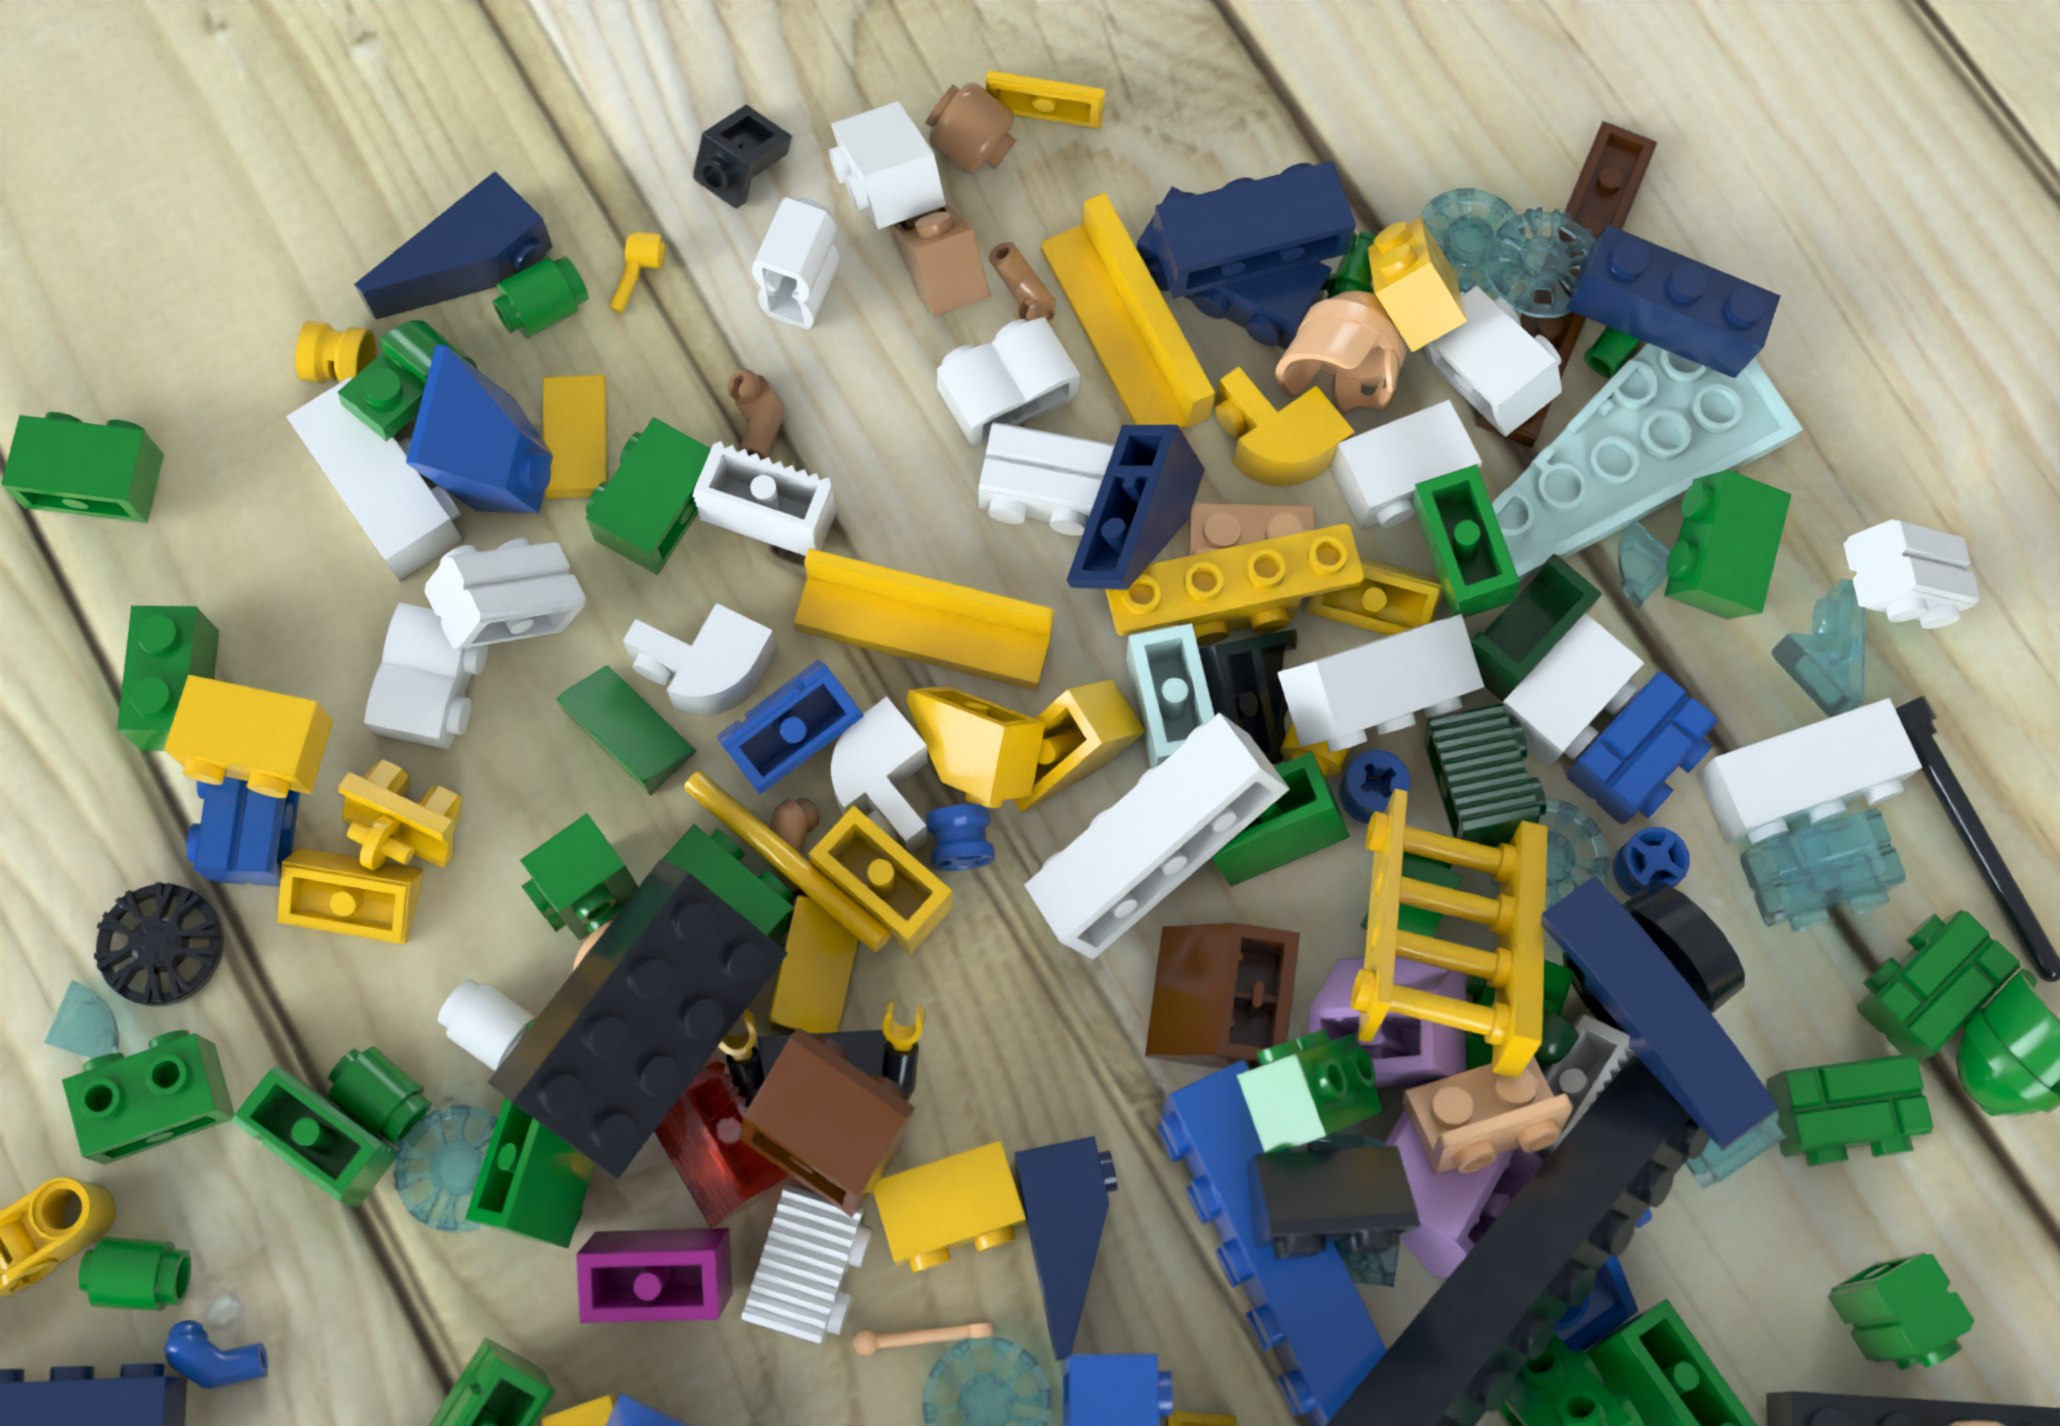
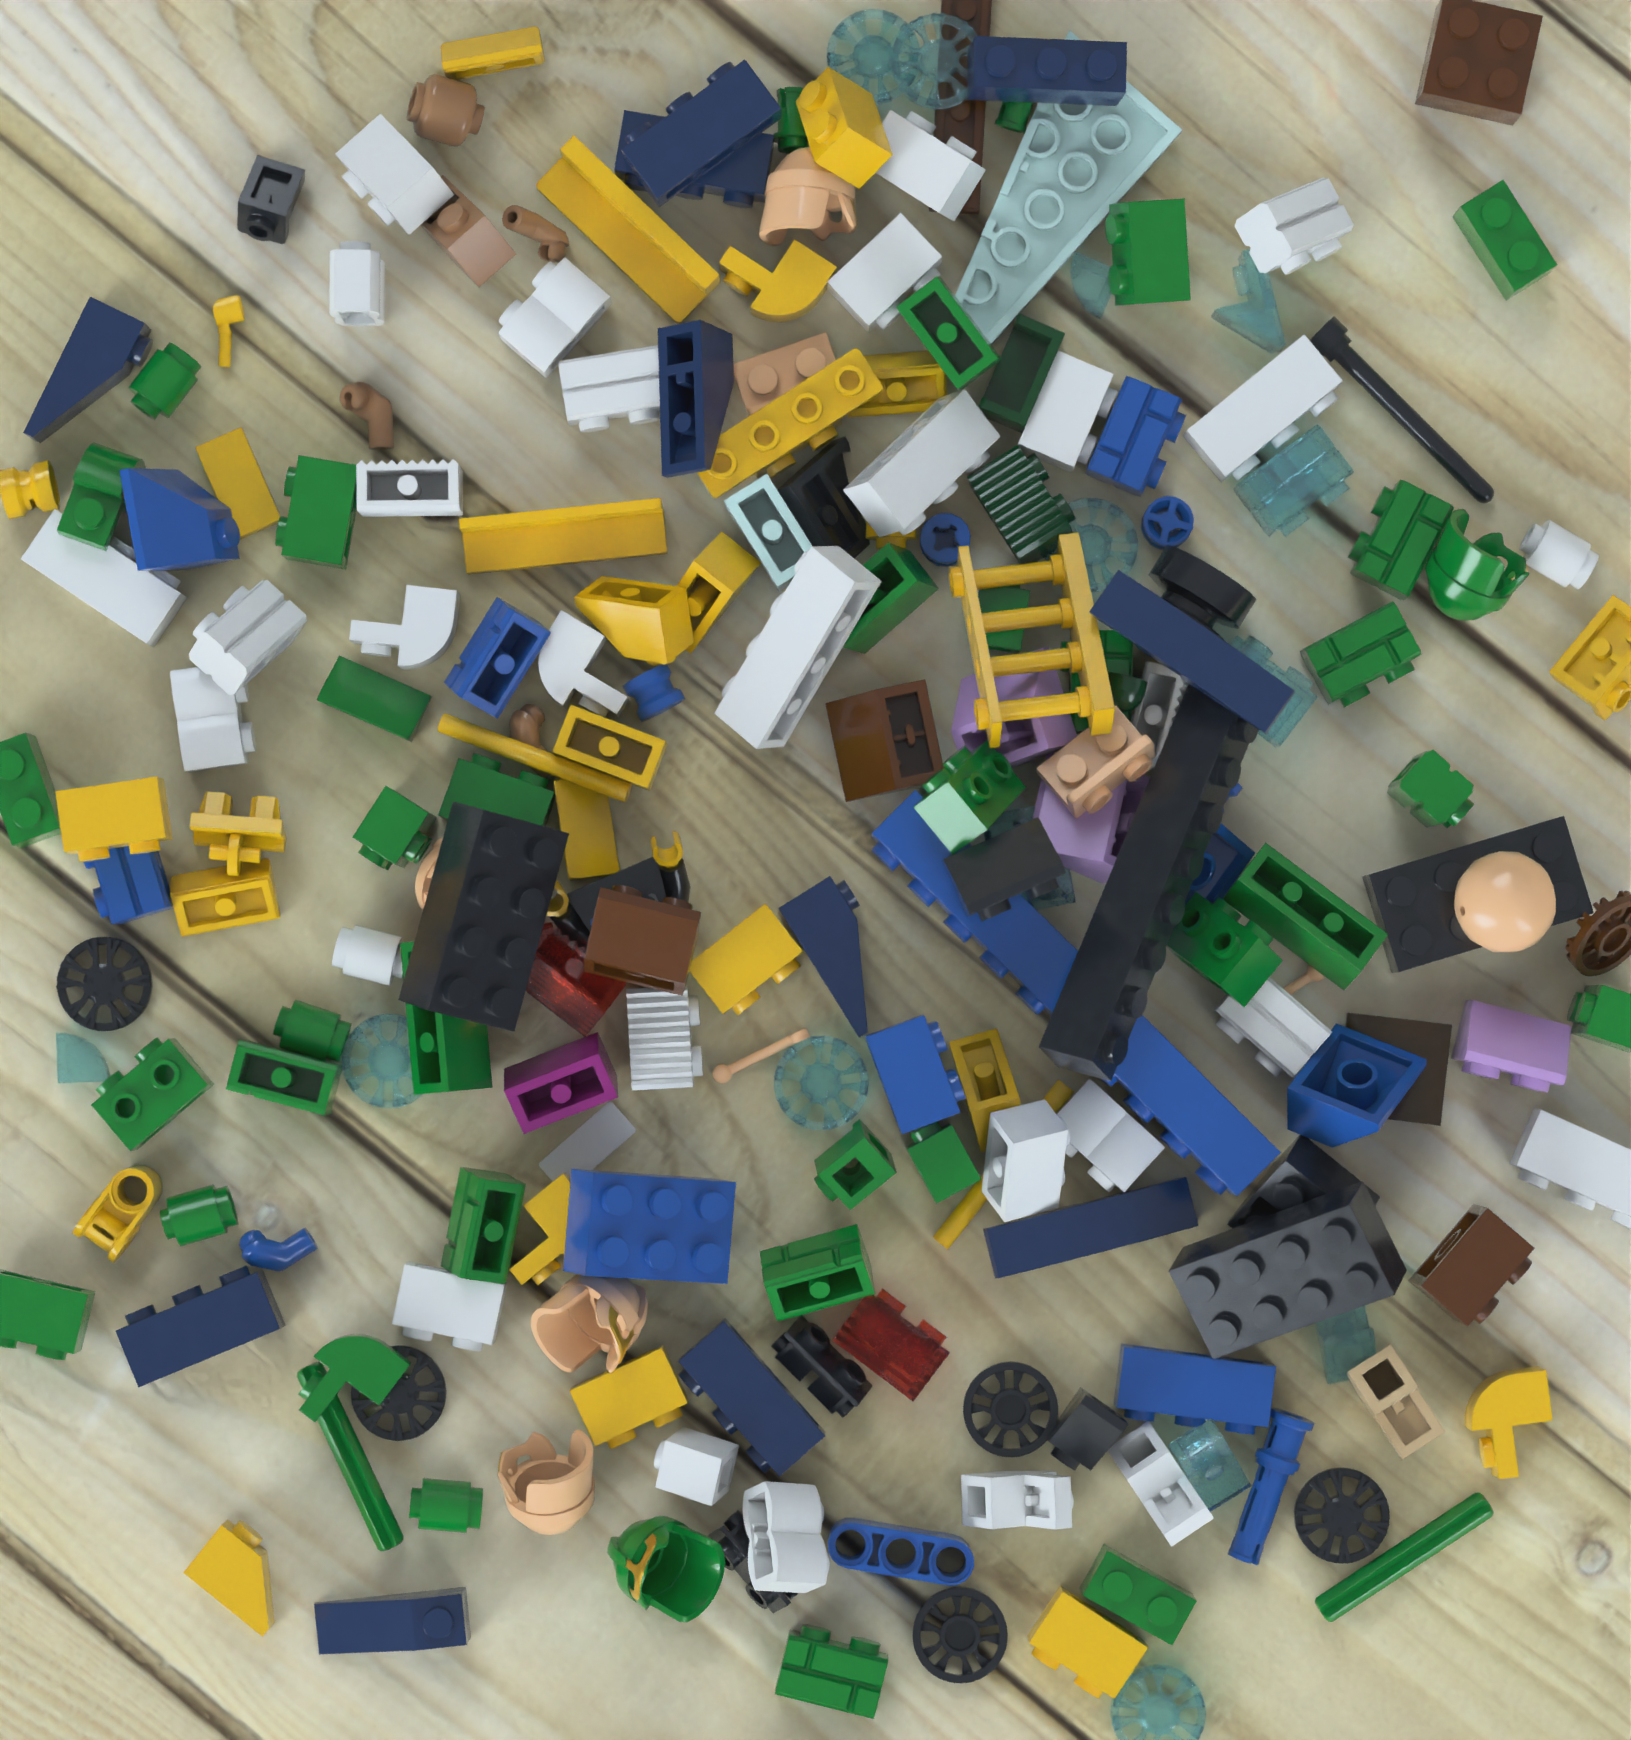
camera: 15 degrees left, 15 degrees up
(665, 1369) = (589, 1143): none -> white sticker

